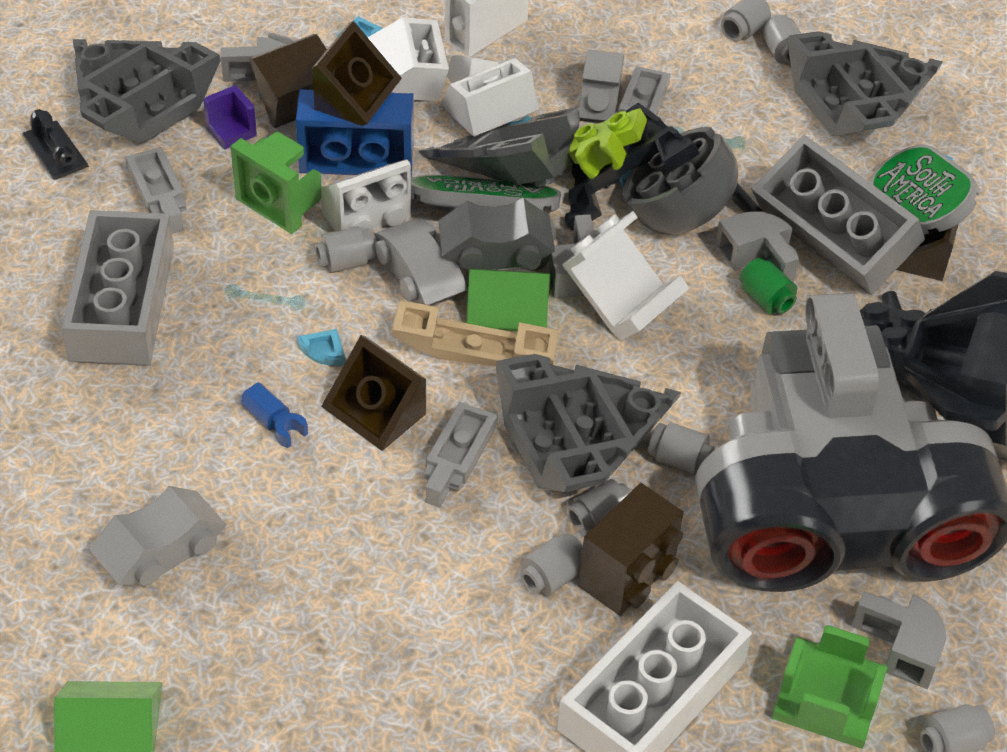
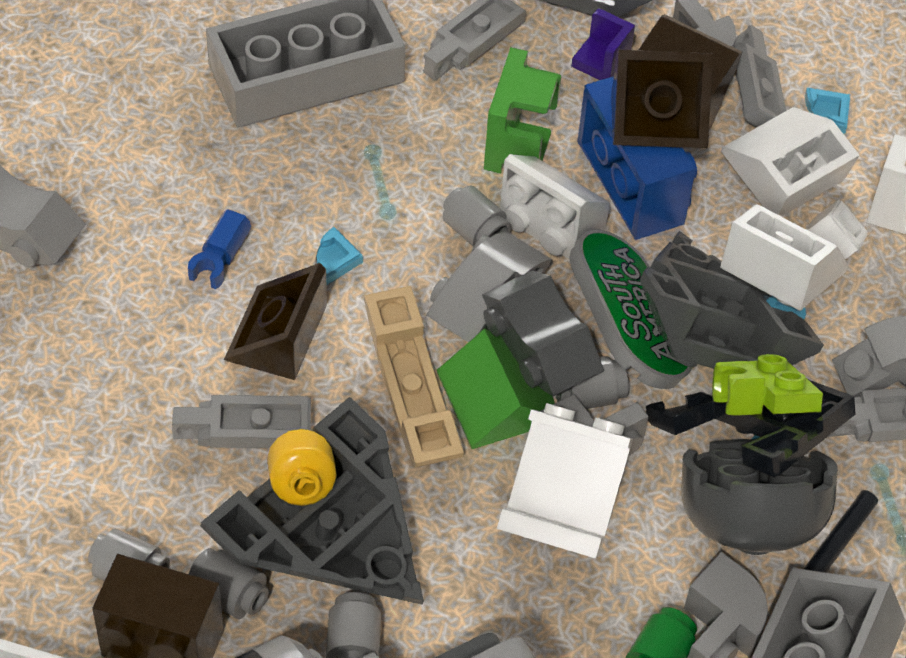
camera: 65 degrees right, 5 degrees up
(542, 413) = (301, 467): none -> yellow head

